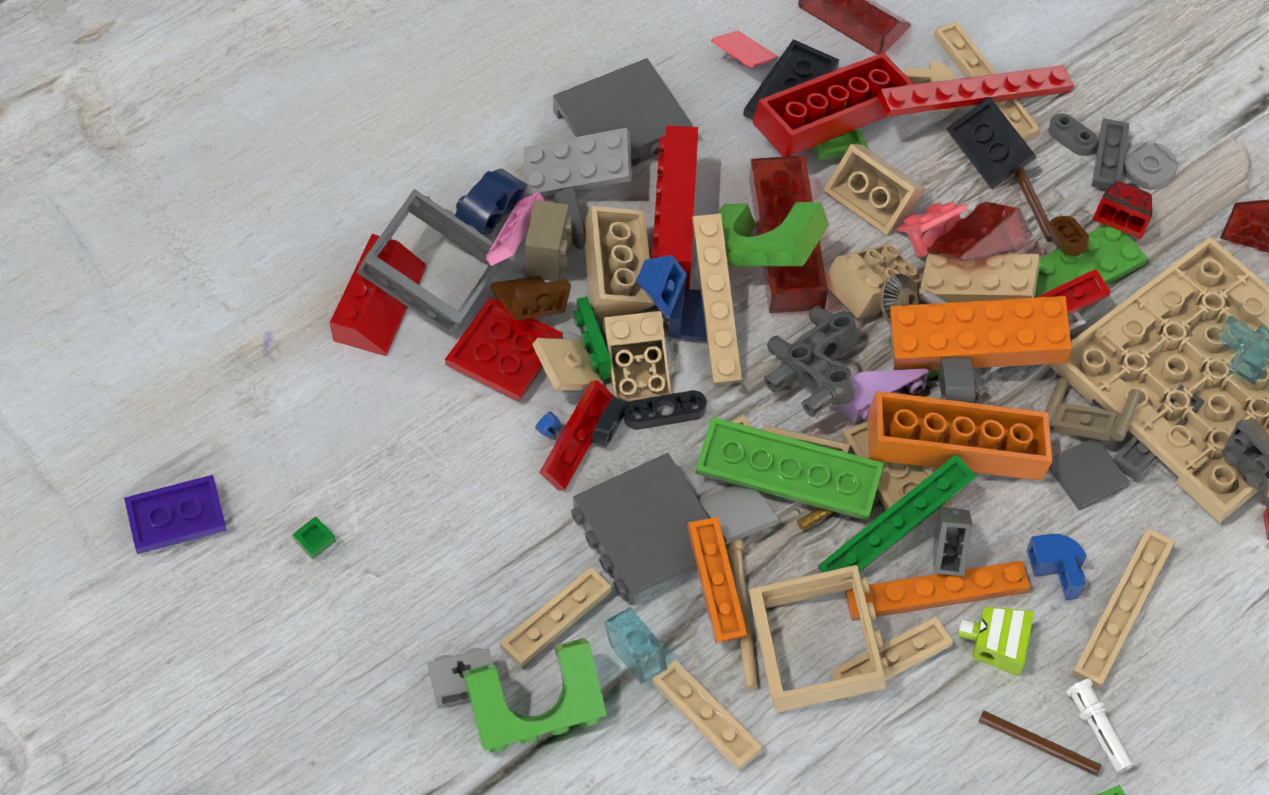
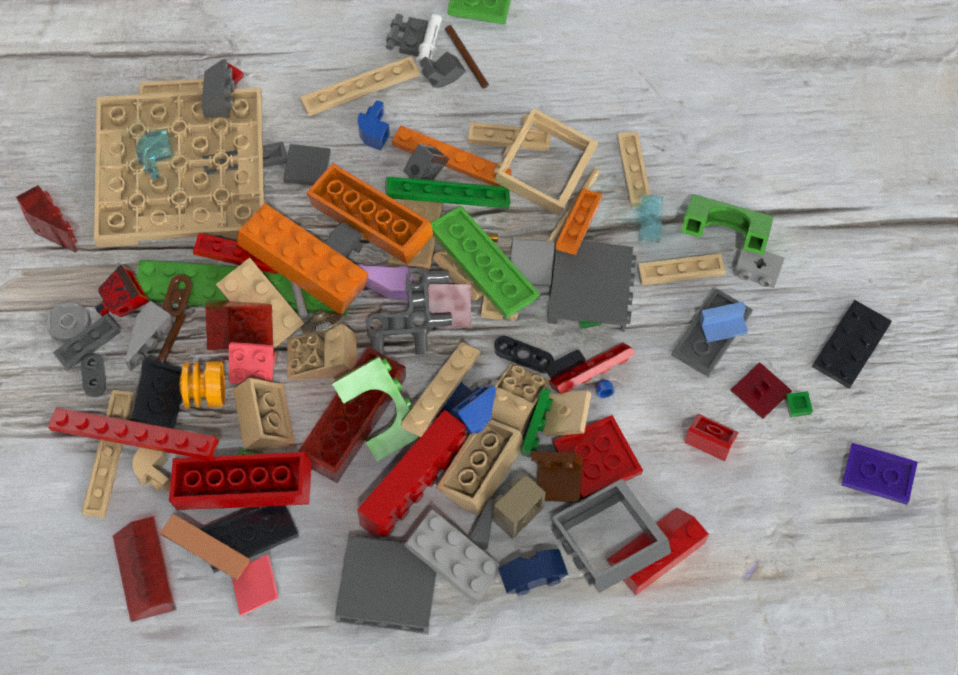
camera: 145 degrees left, 5 degrees up
(290, 657) = (851, 344): none -> black plate
(369, 536) = (761, 390): none -> dark red piece
(392, 439) = (711, 437): none -> red slope
(459, 567) = (723, 322): none -> medium blue panel
(468, 562) = (694, 349): none -> dark grey plate
(513, 230) = (535, 526): bright pink tile -> none
(782, 406) = (453, 300): none -> piece
(816, 46) = (205, 547): none -> nougat tile
(956, 168) = (203, 384): none -> light orange wheel
(1000, 637) = (441, 109): lime torso -> none
(1048, 686) = (443, 71): none -> dark grey brick
(1063, 190) = (147, 331): none -> light grey slope
(1089, 421) = (280, 182): dark tan plate -> none
(1130, 726) = (413, 35): none -> dark grey plate

